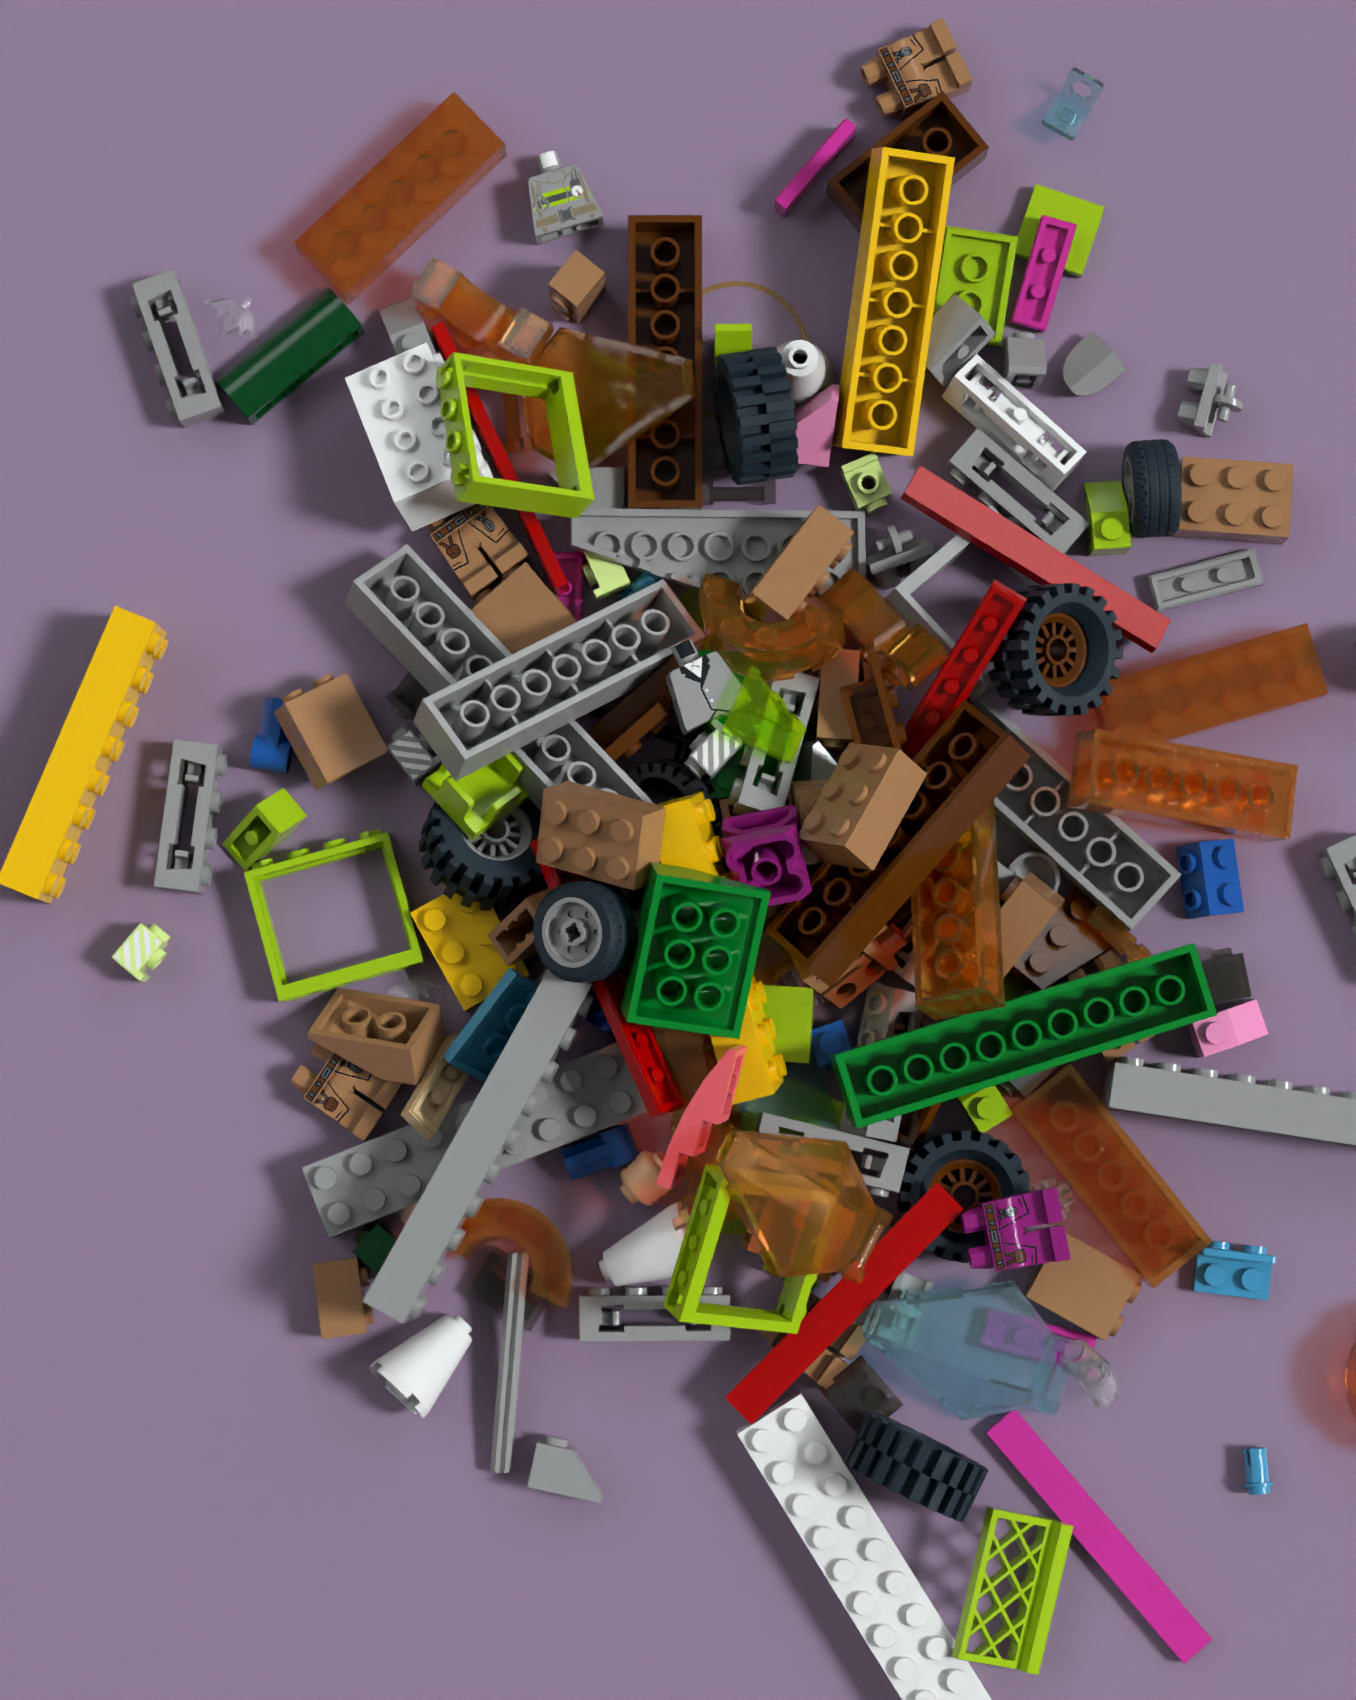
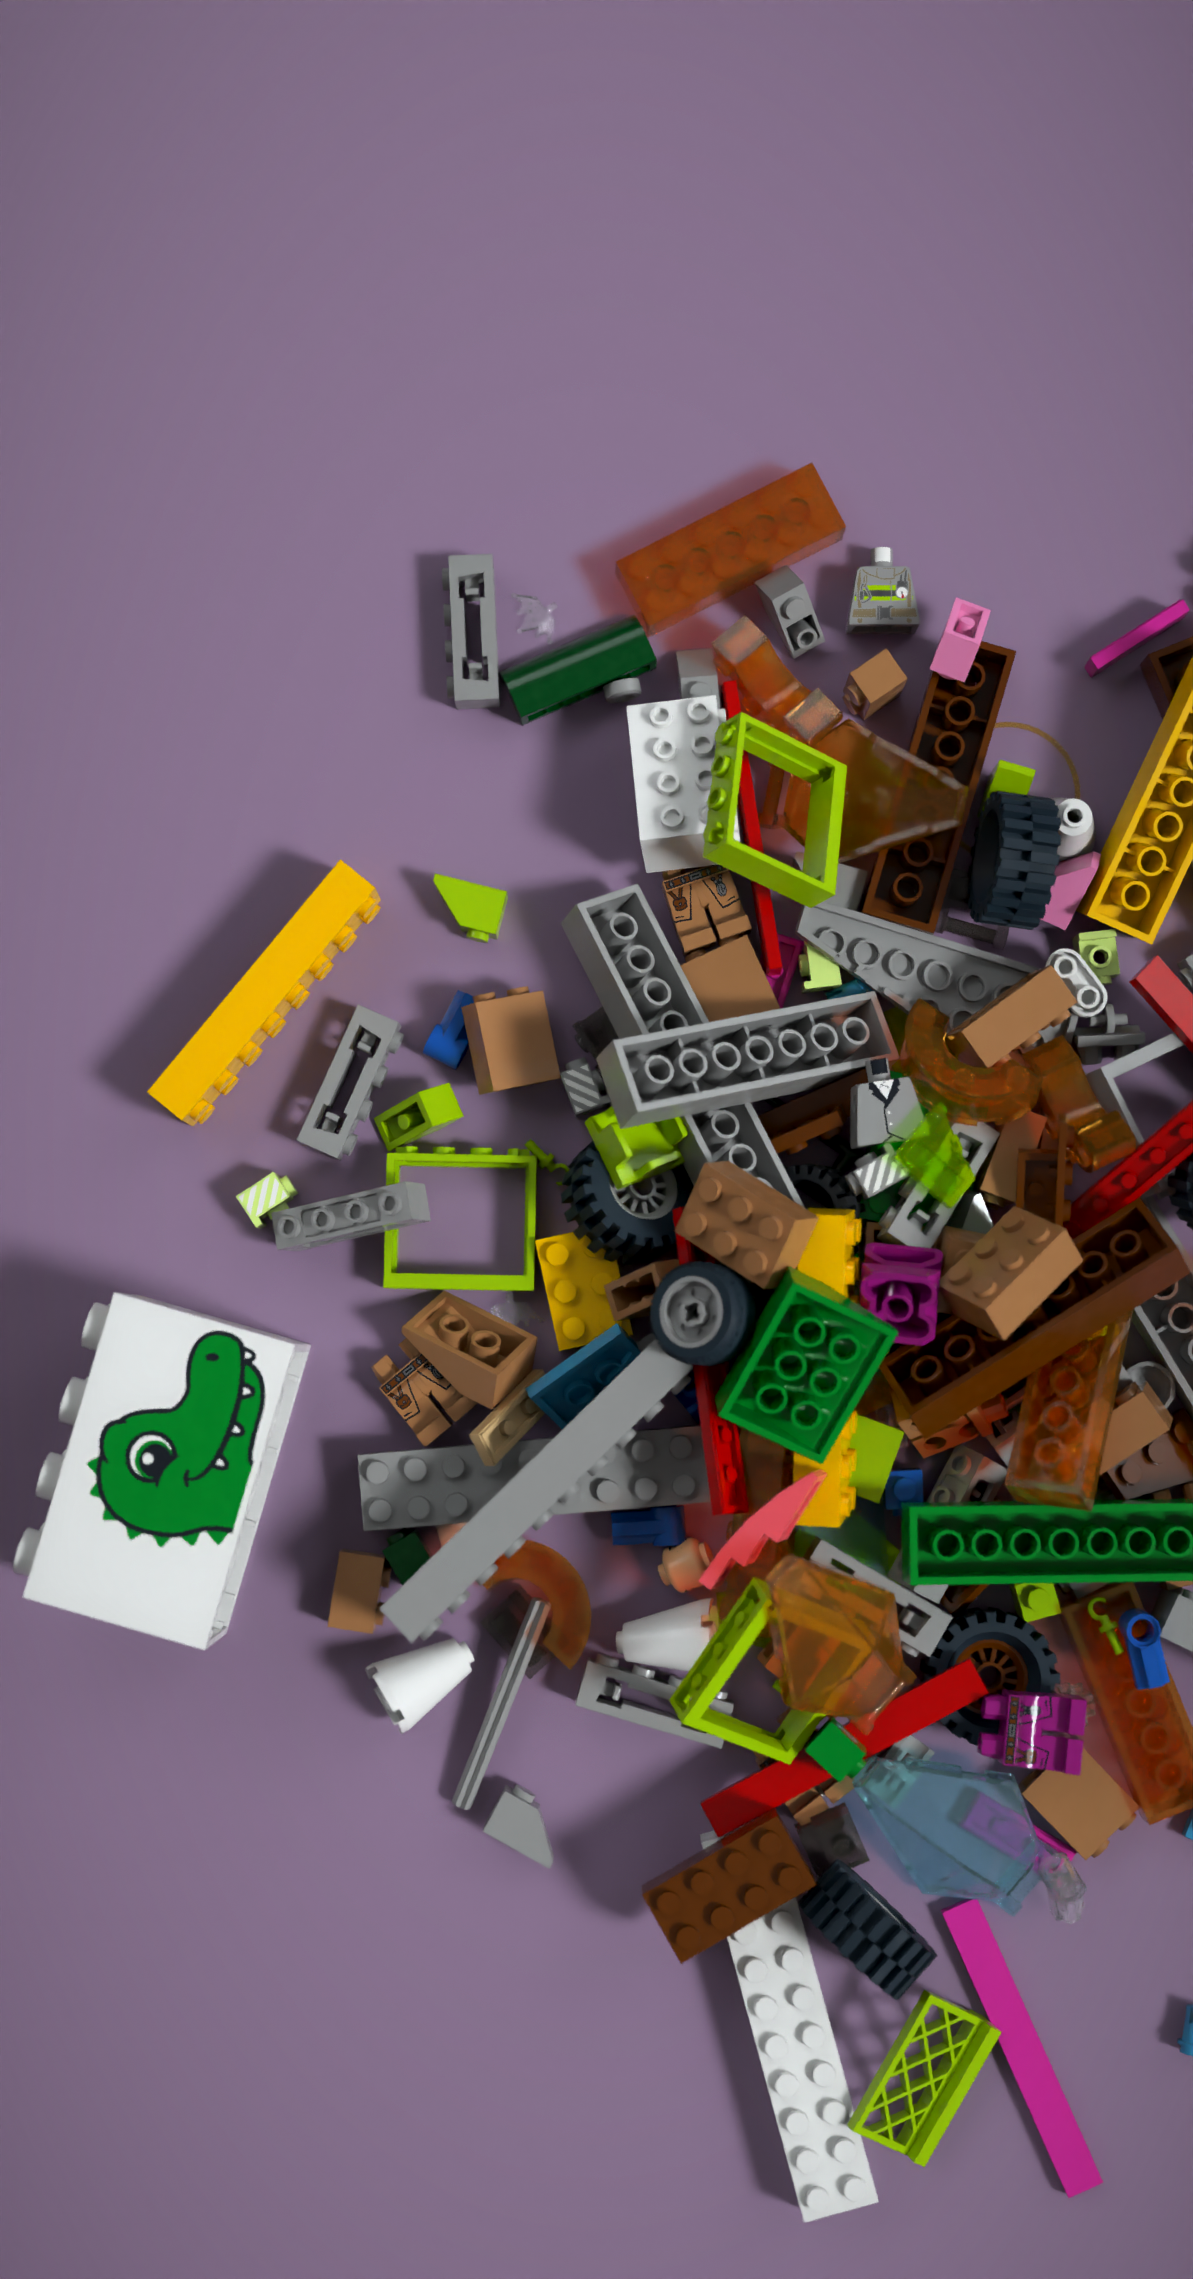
camera: 20 degrees right, 0 degrees up
(118, 1233) = (162, 1469): none -> white brick
(227, 943) = (351, 1216): none -> light grey brick
(257, 612) = (473, 906): none -> lime slope
(338, 363) = (622, 690): none -> light grey tile
(398, 834) = (545, 1160): none -> lime hand
(476, 239) = (790, 610): none -> light grey slope
(643, 221) = (960, 640): none -> bright pink slope
(772, 1464) = (728, 1885): none -> reddish brown brick
(837, 1306) = (837, 1750): none -> green brick
(853, 512) = (1080, 981): none -> white brick
(1059, 1113) = (1108, 1627): none -> lime hand
(1099, 1127) = (1145, 1651): none -> blue piece

